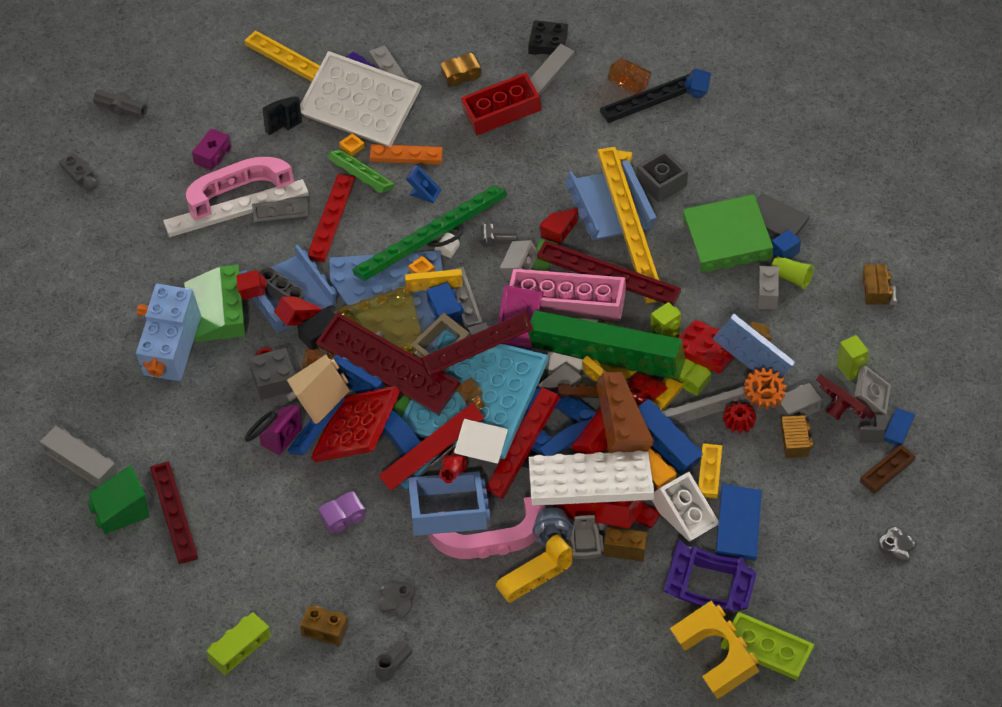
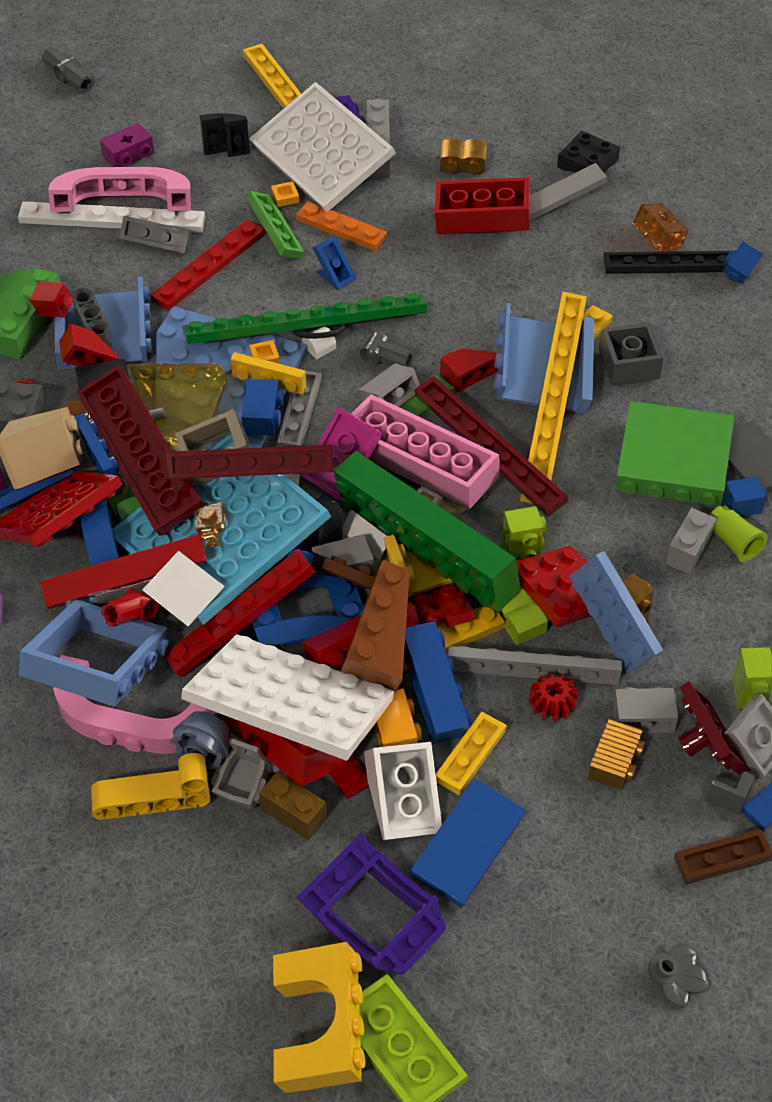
camera: 25 degrees right, 0 degrees up
(767, 396) = (609, 660): orange gear -> none

